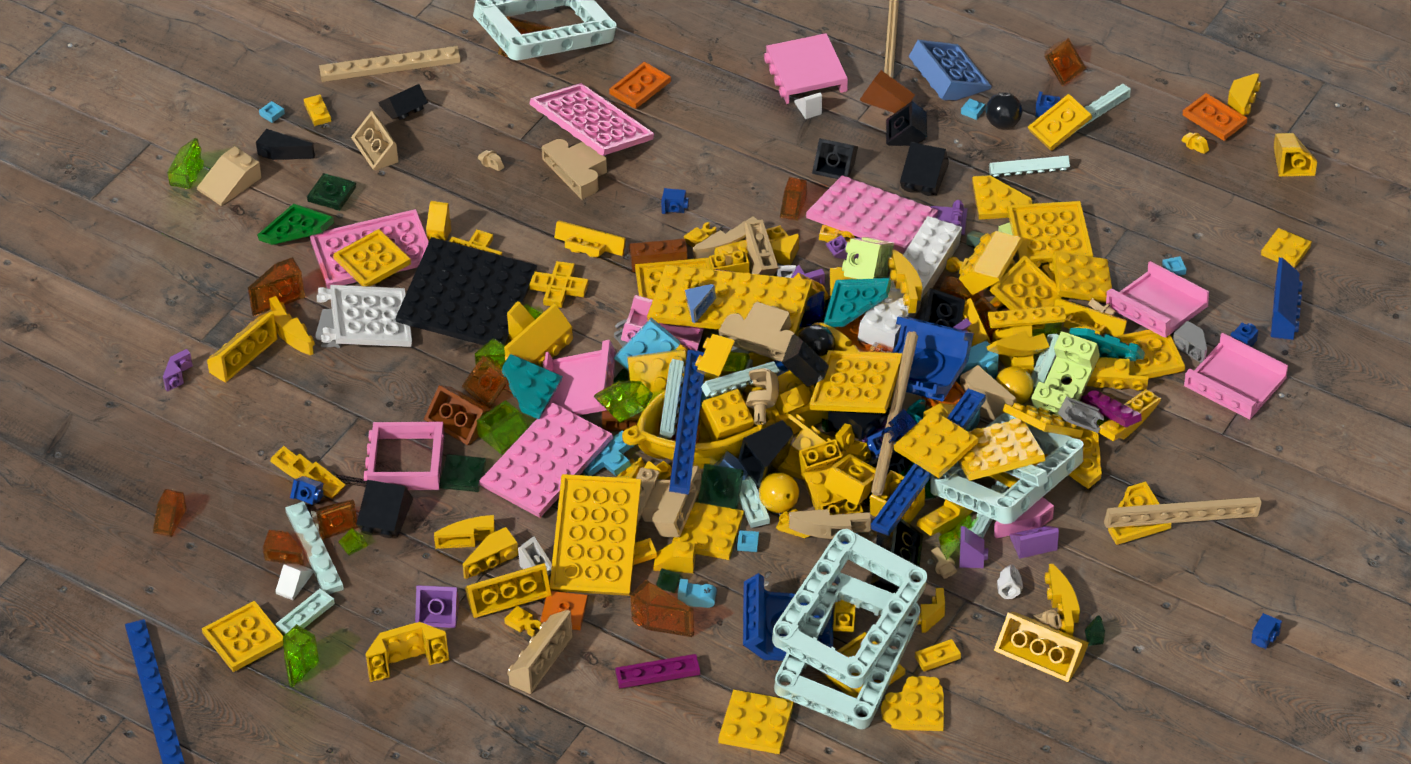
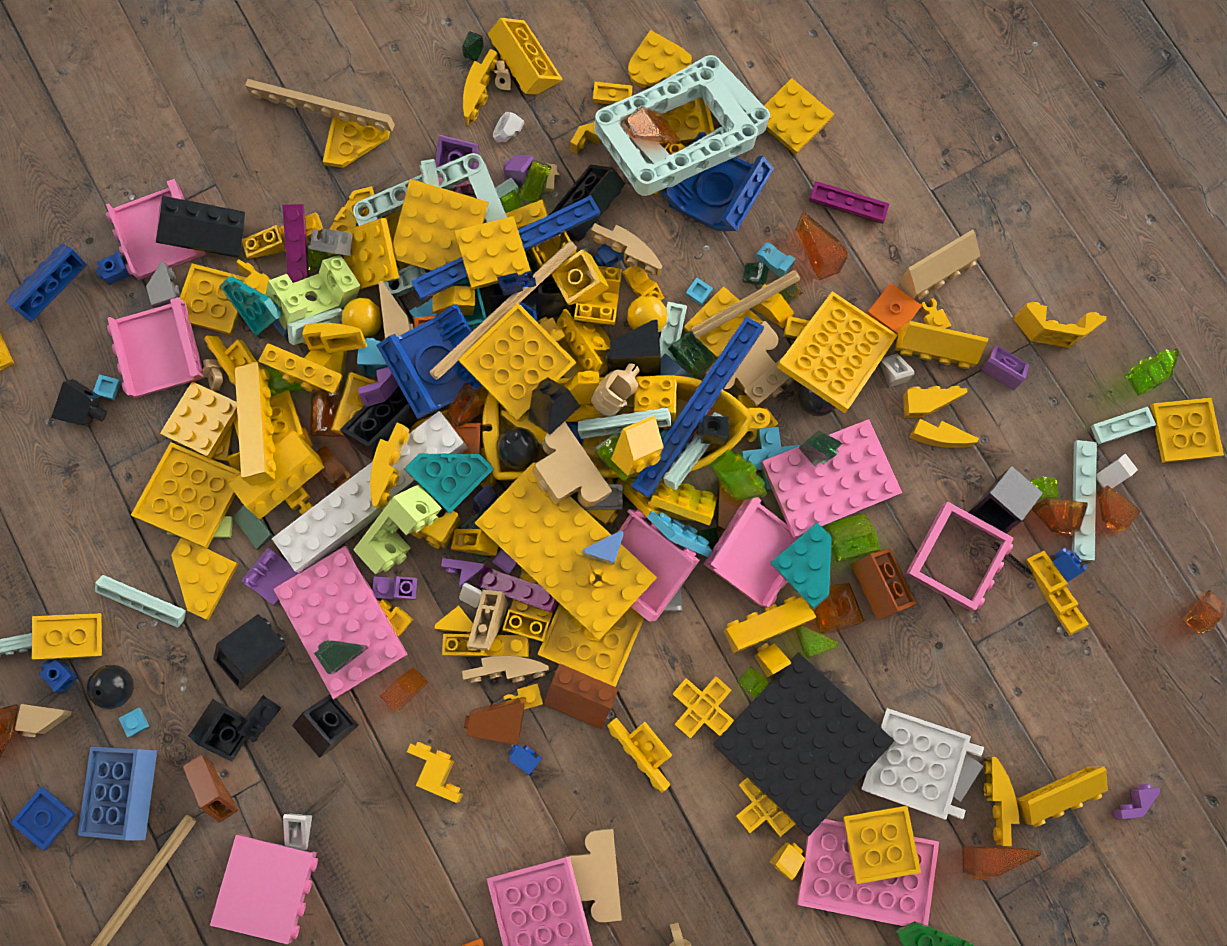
camera: 160 degrees left, 30 degrees up
(462, 473) = (910, 514): clear green plate -> none
(568, 450) = (820, 448): none -> clear green slope
(664, 412) = (720, 424): none -> black brick
(698, 531) = (745, 304): none -> tan axle
(707, 577) = (755, 273): none -> clear green slope
(710, 208) = (497, 721): none -> dark orange slope
(729, 157) = (435, 772): none -> yellow bracket
(855, 187) = (337, 654): none -> clear green slope
(867, 597) = (650, 126): none -> clear orange slope
(886, 141) = (258, 718): none -> black plate
(987, 40) = (43, 818): none -> blue plate
(1030, 269) = (254, 424): none -> yellow brick
(1038, 79) = (39, 719): none -> tan slope
(1181, 242) = (77, 404): none -> black torso
(1196, 380) = (200, 226): none -> black slope

